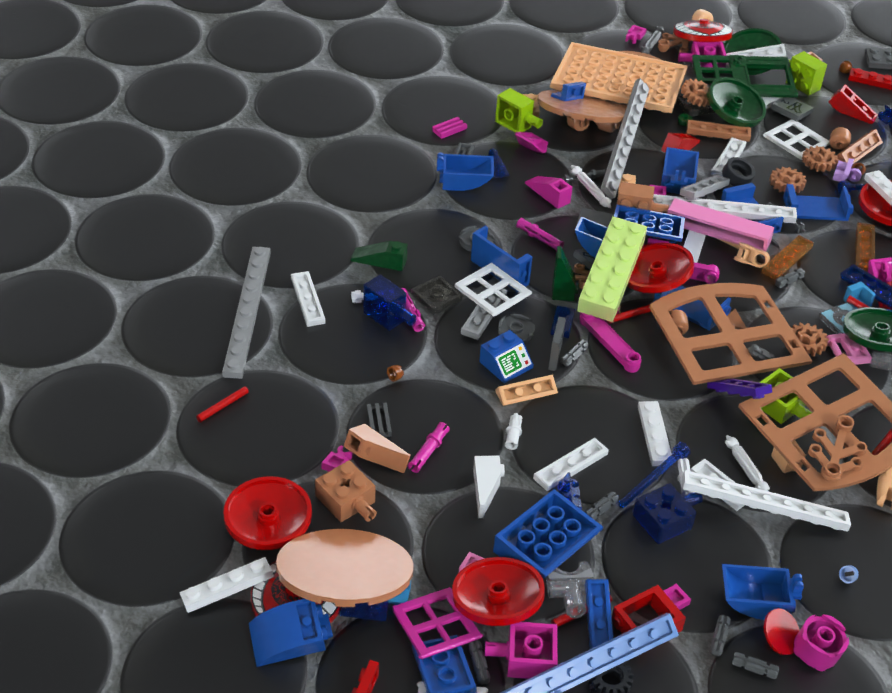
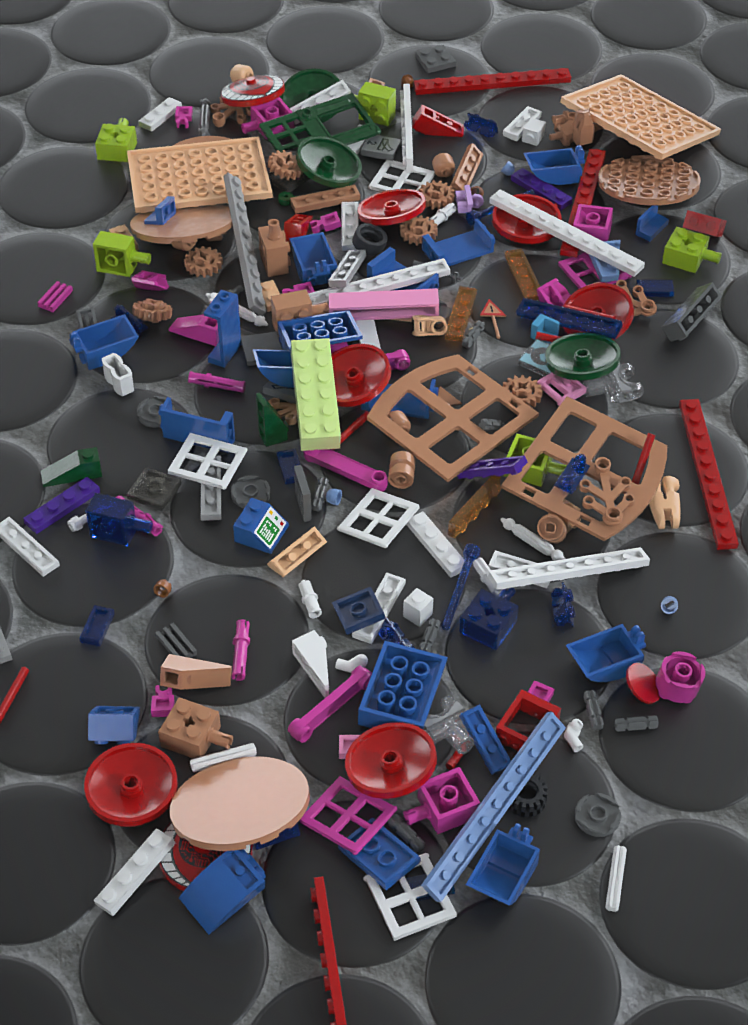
camera: 25 degrees left, 5 degrees up
(285, 460) = (113, 724): none -> slope
(324, 380) = (97, 625): none -> clear blue tile
(345, 523) = (206, 761): none -> white axle
(352, 279) = (61, 505): none -> dark purple plate
(442, 532) = (303, 728): none -> dark pink piece
(460, 198) = (118, 374): none -> white brick
(519, 162) = (152, 310): none -> nougat gear
(520, 500) = (349, 666): none -> white arm
(549, 458) = (358, 610): none -> dark blue tile
(567, 31) = (115, 141): none -> lime brick
(570, 191) = (226, 312): none -> blue panel
(585, 142) = (203, 261): none -> nougat gear
(585, 359) = (334, 496): none -> medium blue hinge
(604, 476) = (418, 607): none -> white brick
(616, 27) = (159, 114): none -> white plate
(625, 403) = (360, 510): none -> white window
(649, 150) = (274, 249): none -> nougat brick
(658, 359) = (401, 469): none -> nougat wheel
(686, 647) = (572, 733): none -> white arm
(707, 414) = (474, 505): none -> clear orange plate
(709, 148) = (328, 222): none -> dark pink plate
(743, 532) = (566, 611): none -> clear blue hinge
(768, 460) = (552, 528): none -> nougat wheel
(773, 154) = (391, 207): none -> red dish
(812, 420) = (573, 474): none -> clear blue hinge
(816, 175) = (443, 214): none -> white axle
(820, 266) = (492, 311): none -> nougat piece
(822, 101) = (406, 130): none -> white plate

